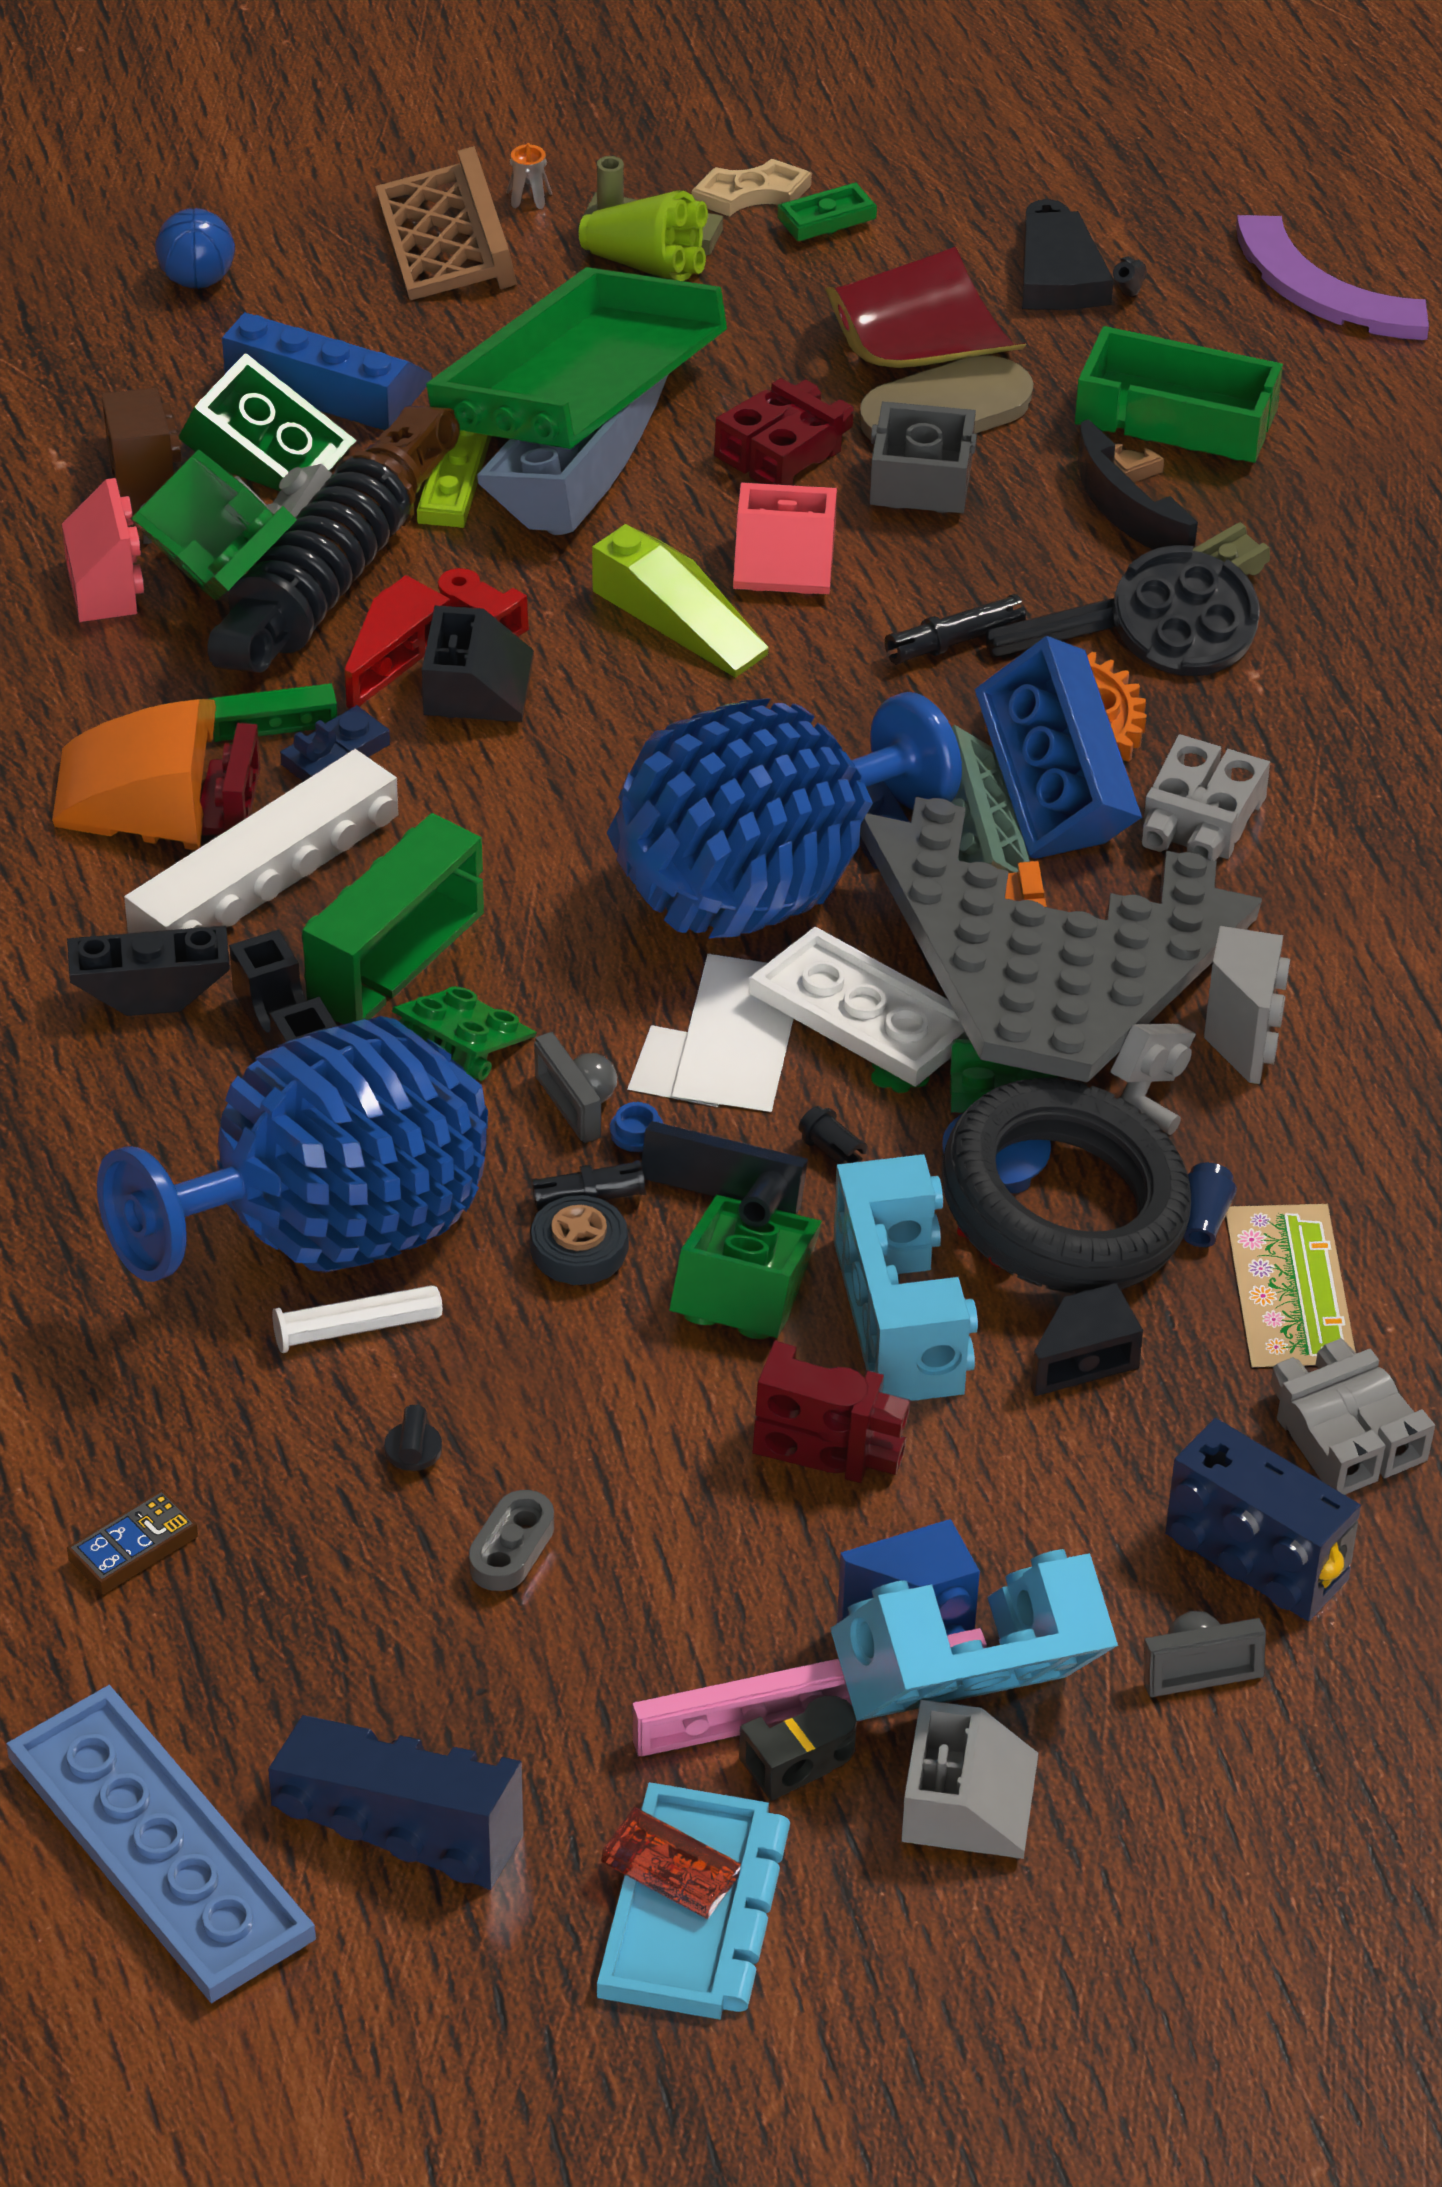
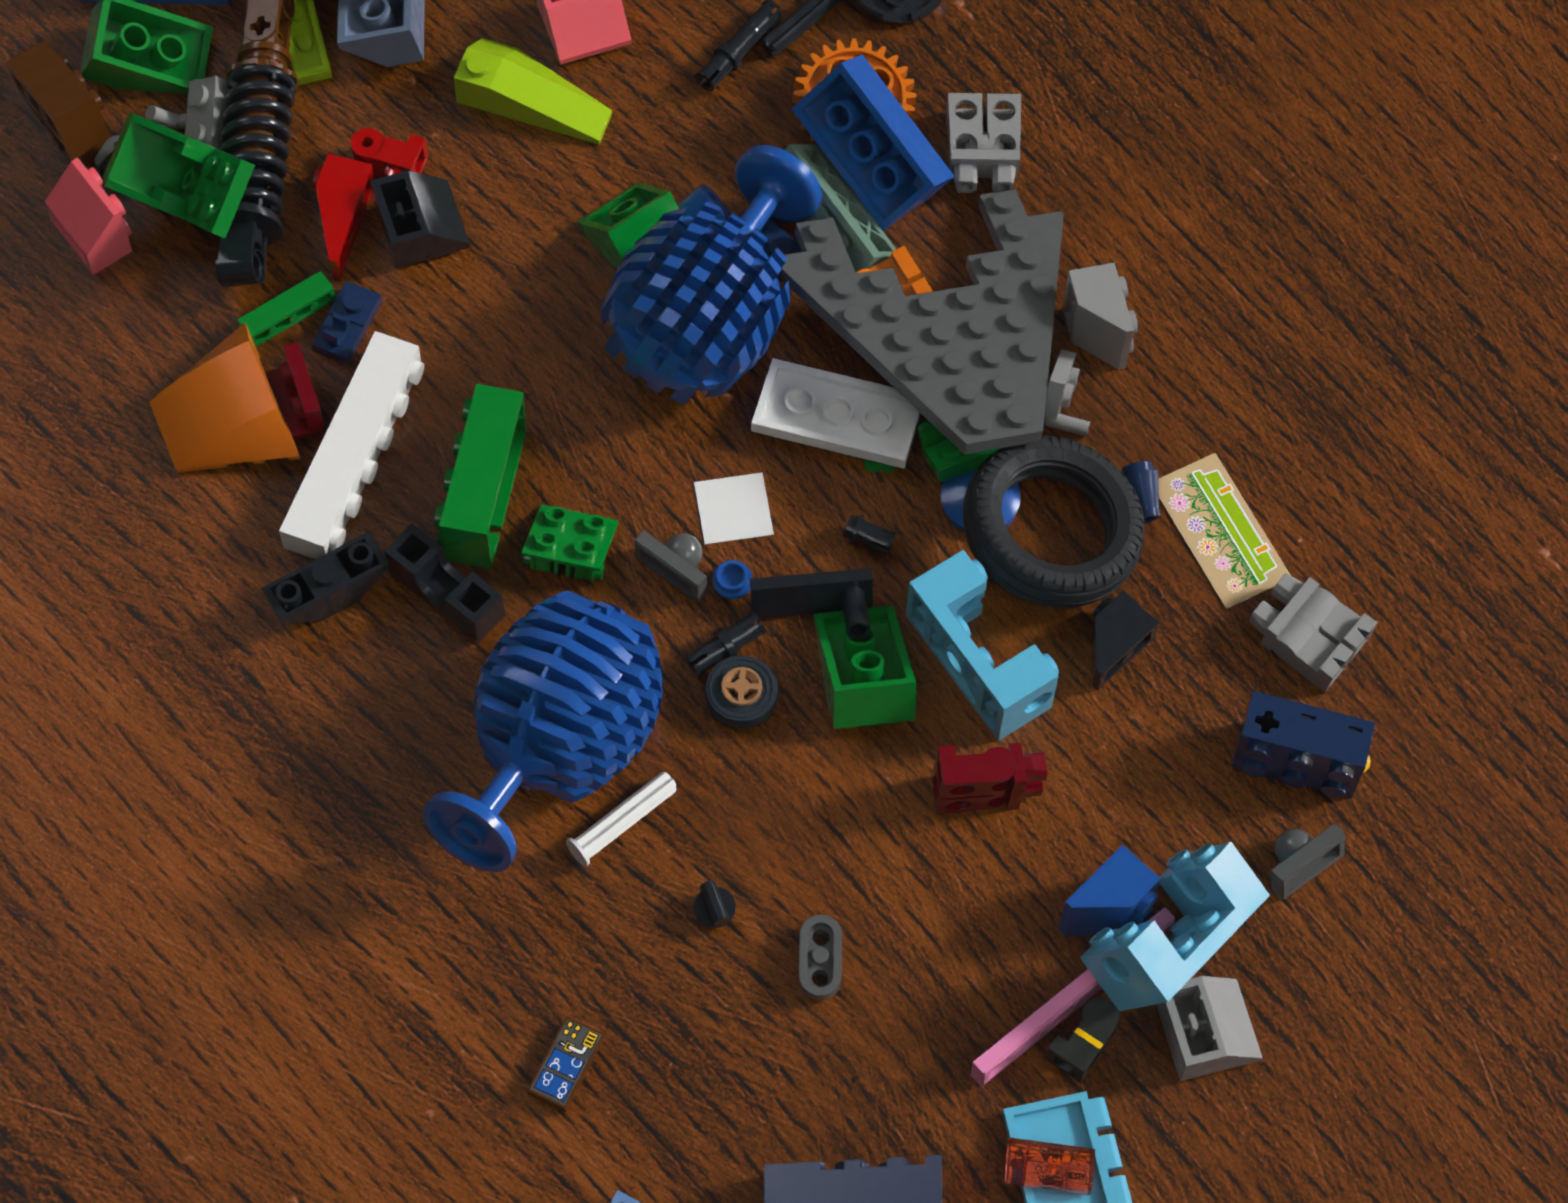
camera: 25 degrees left, 20 degrees up
(732, 1040) = (755, 470): white sticker -> none

